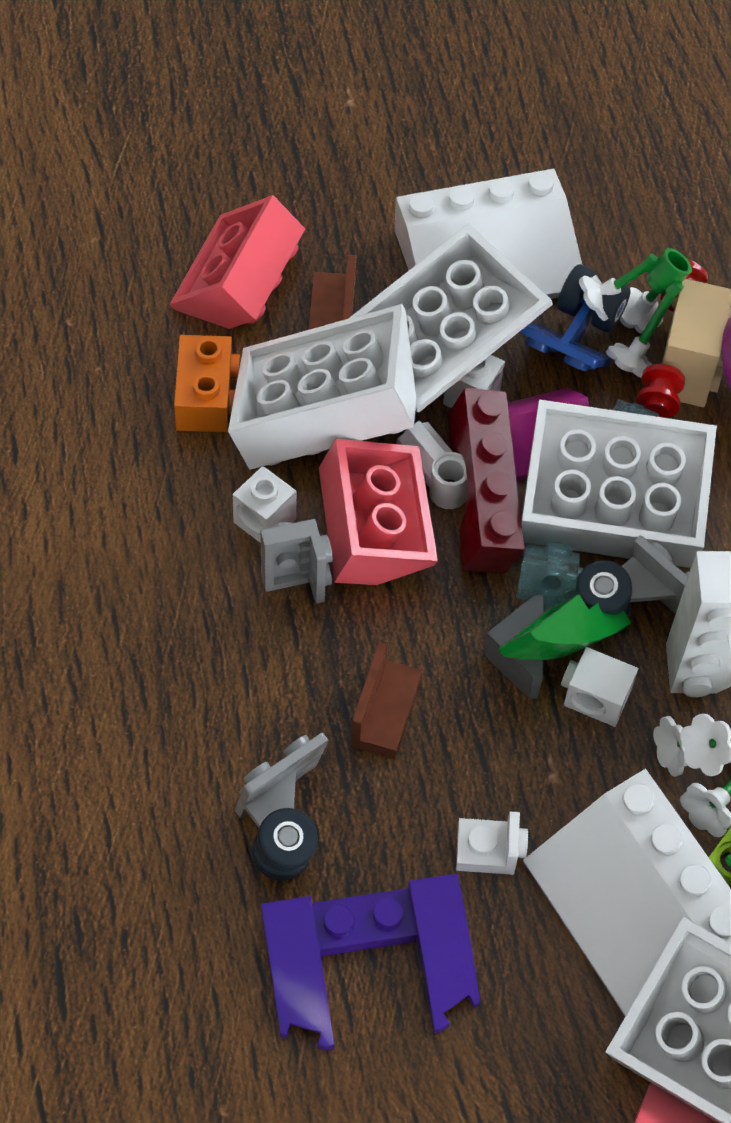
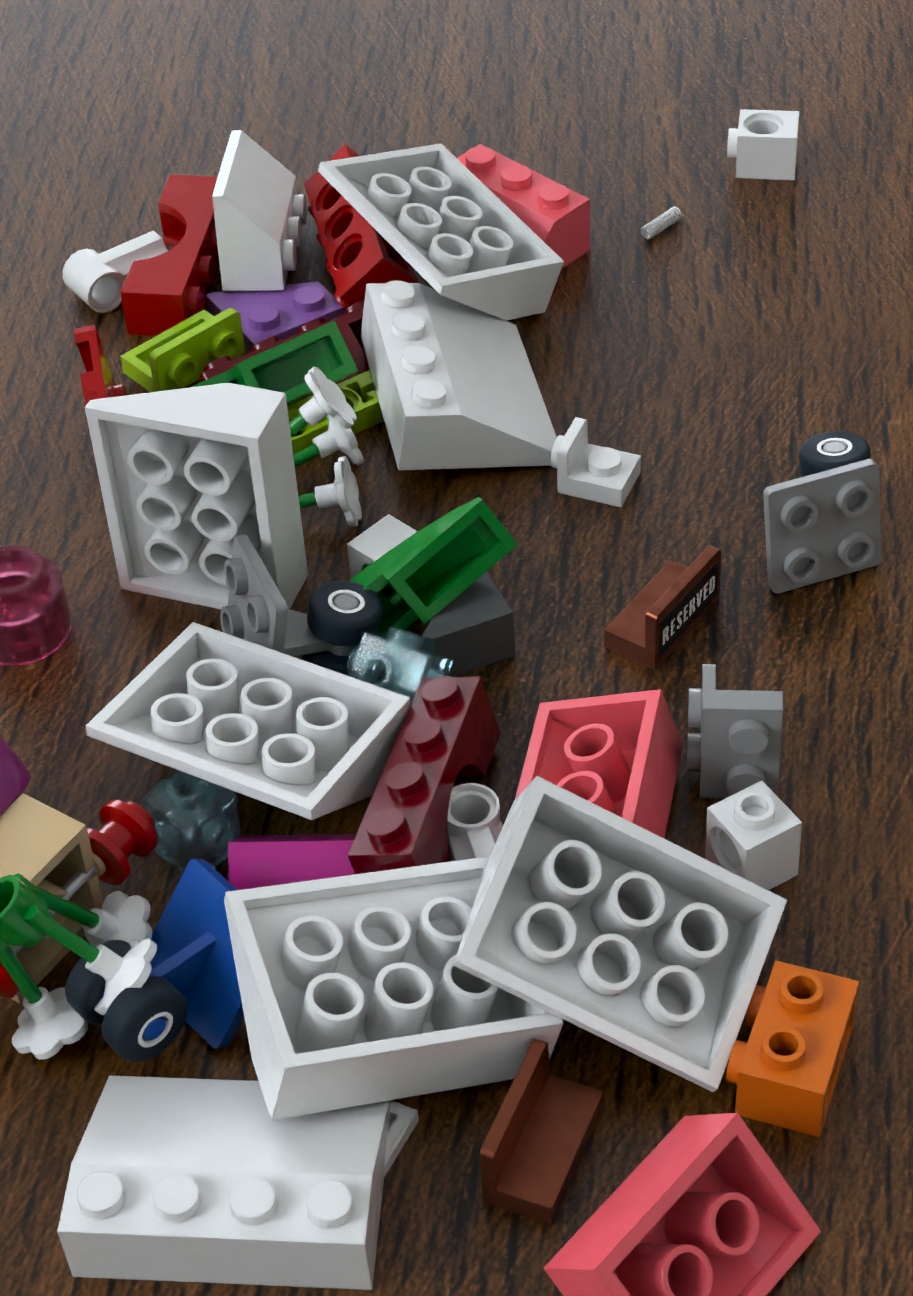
camera: 155 degrees left, 15 degrees down
(423, 913) = (688, 431): dark purple wedge -> none

